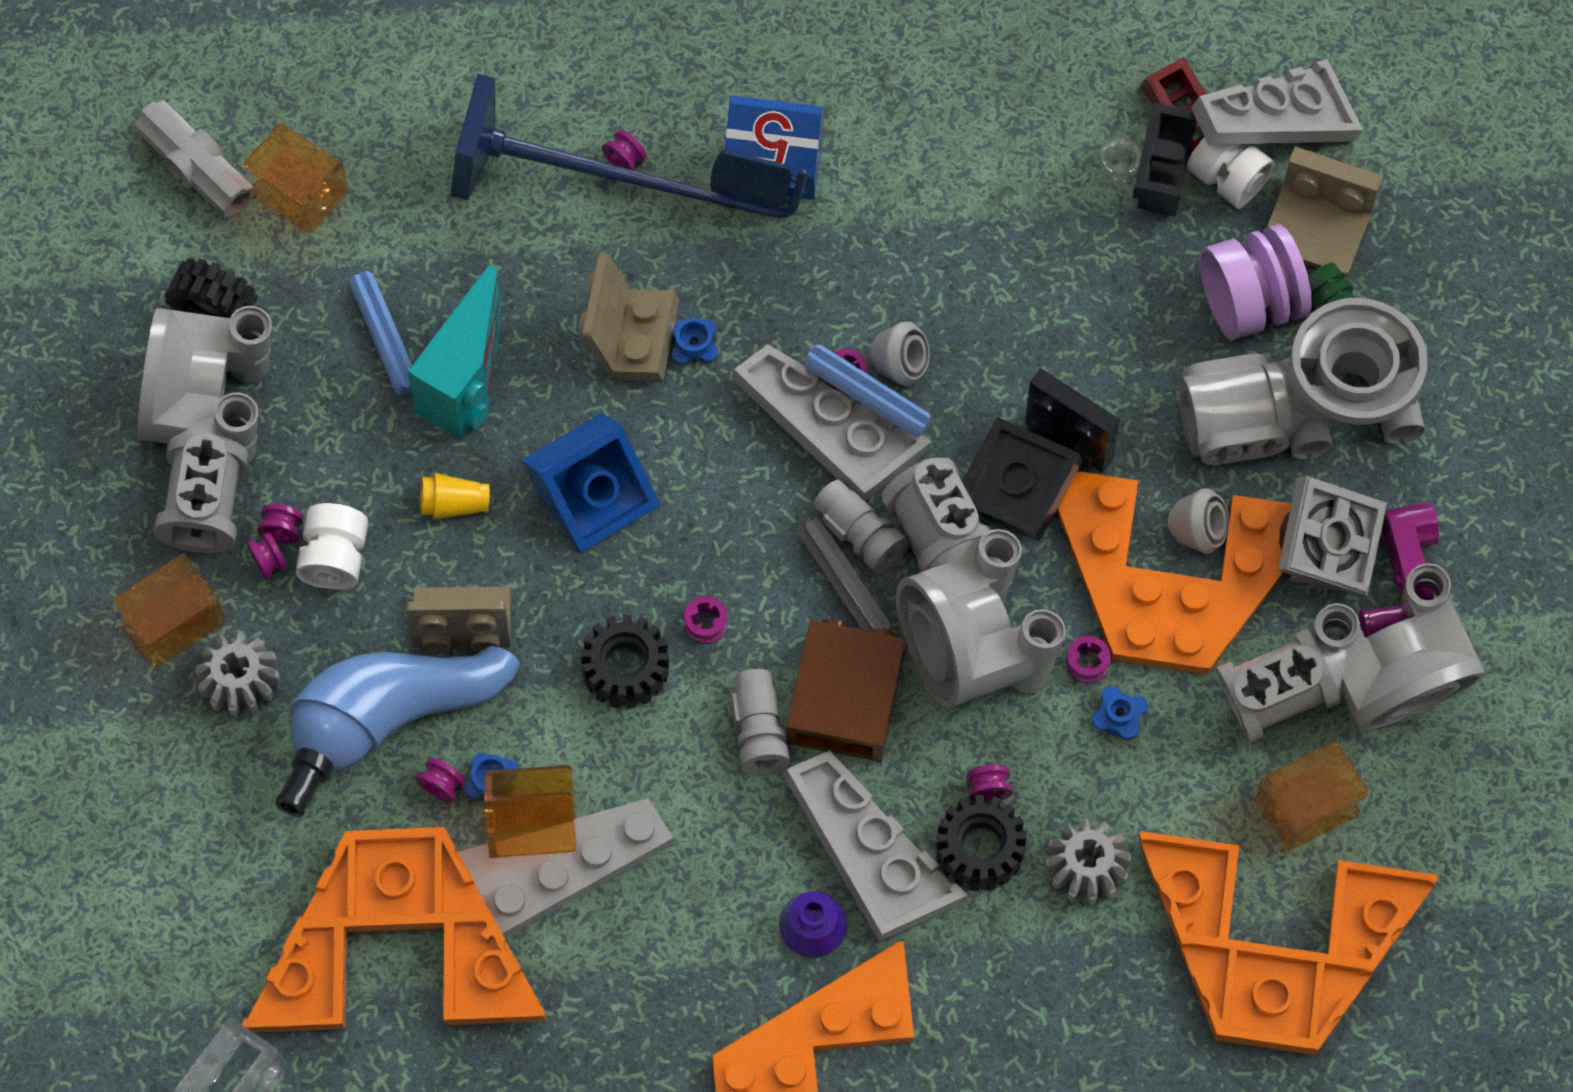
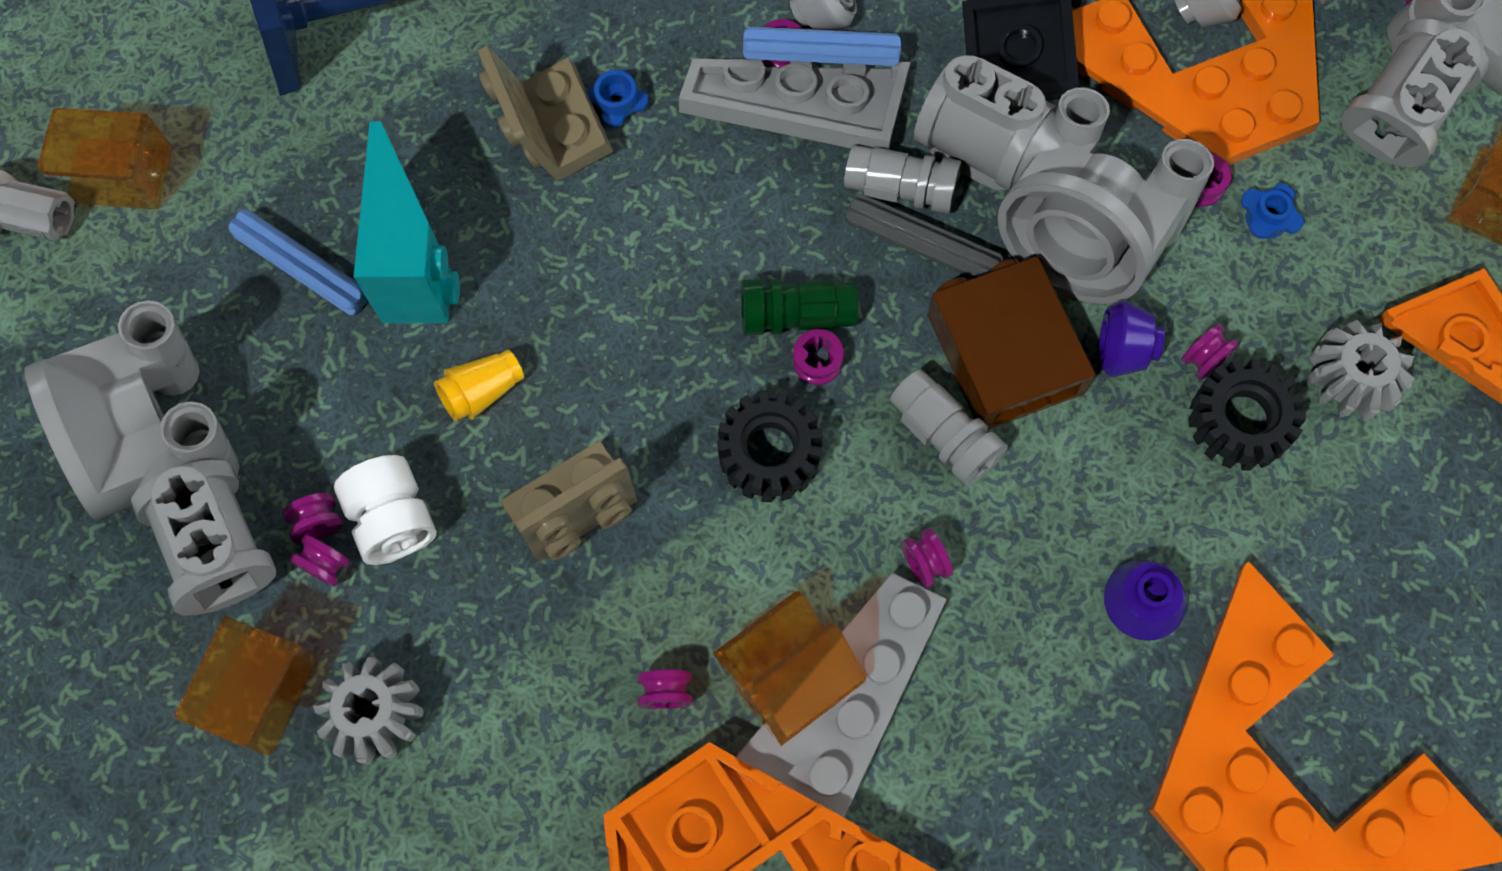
camera: 30 degrees left, 5 degrees up
(208, 290) = (76, 316): black tyre -> none
(368, 697) = (529, 658): medium blue animal -> none
(480, 763) = (698, 646): blue plate -> none
(591, 481) = (610, 285): blue slope -> none
(678, 802) = (927, 558): none -> magenta bush
(713, 574) = (797, 306): none -> dark green axle
(878, 863) = (1162, 496): light grey wing -> none
(933, 739) = (1128, 339): none -> dark purple cone

